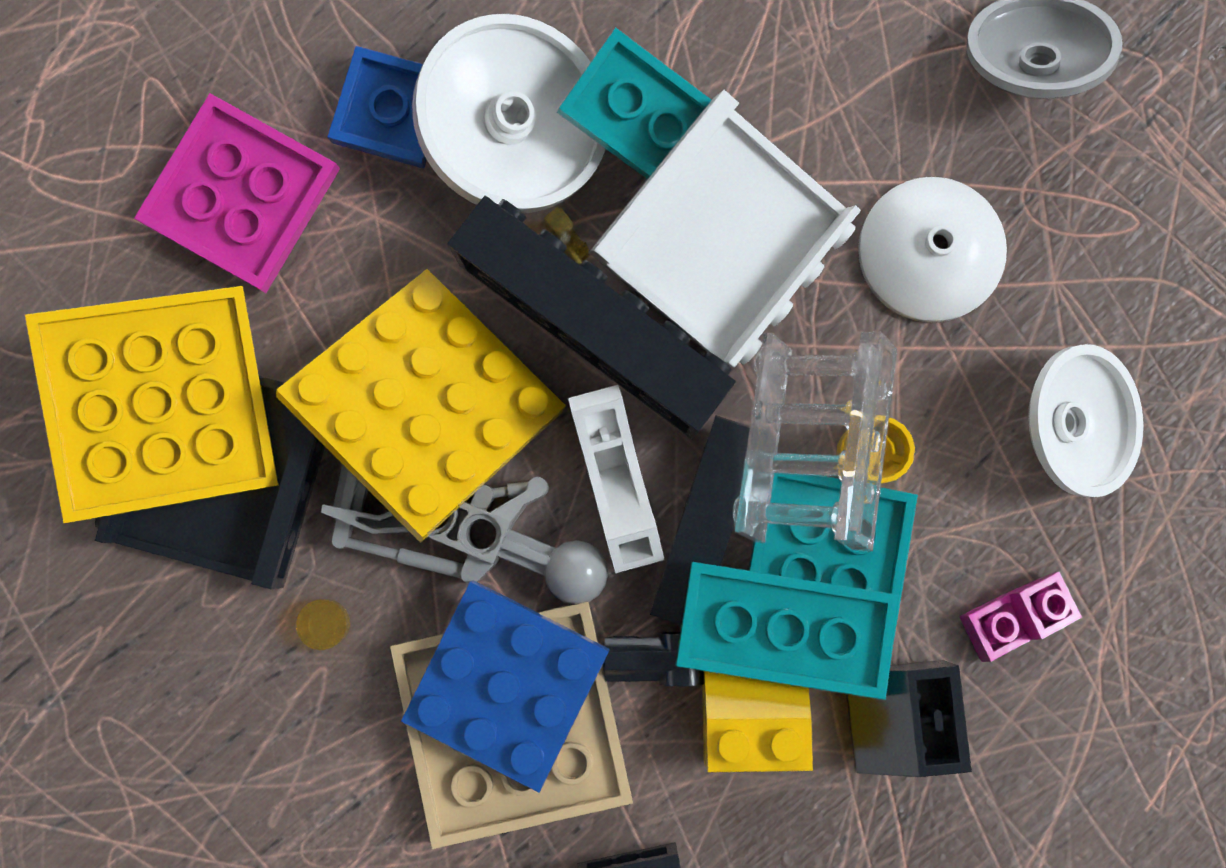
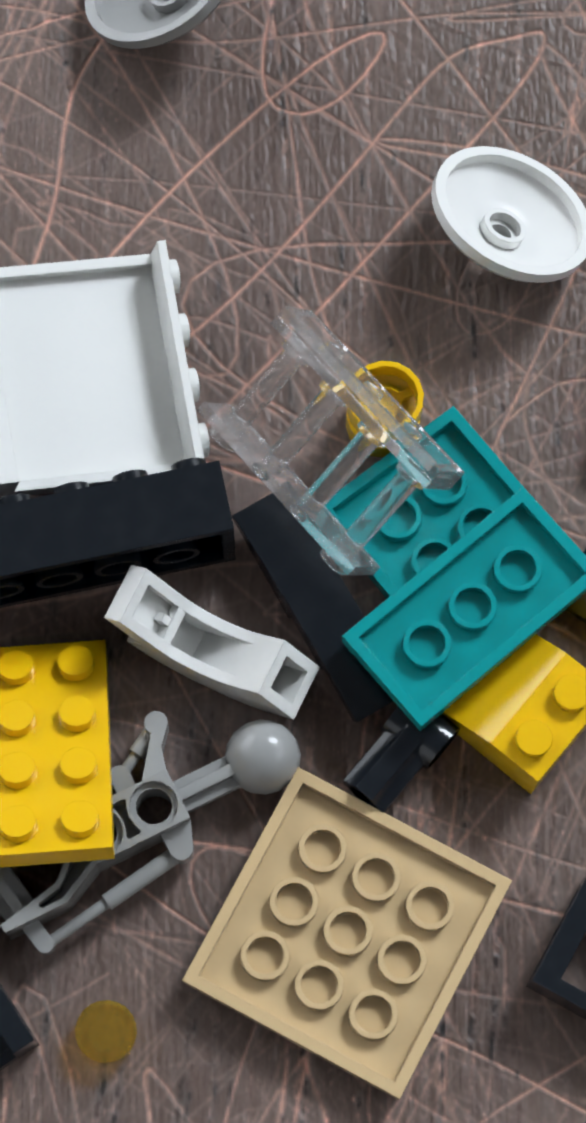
camera: 55 degrees left, 10 degrees down
(505, 685) = (308, 899): blue plate -> none
(913, 273) = (259, 247): white dish -> none

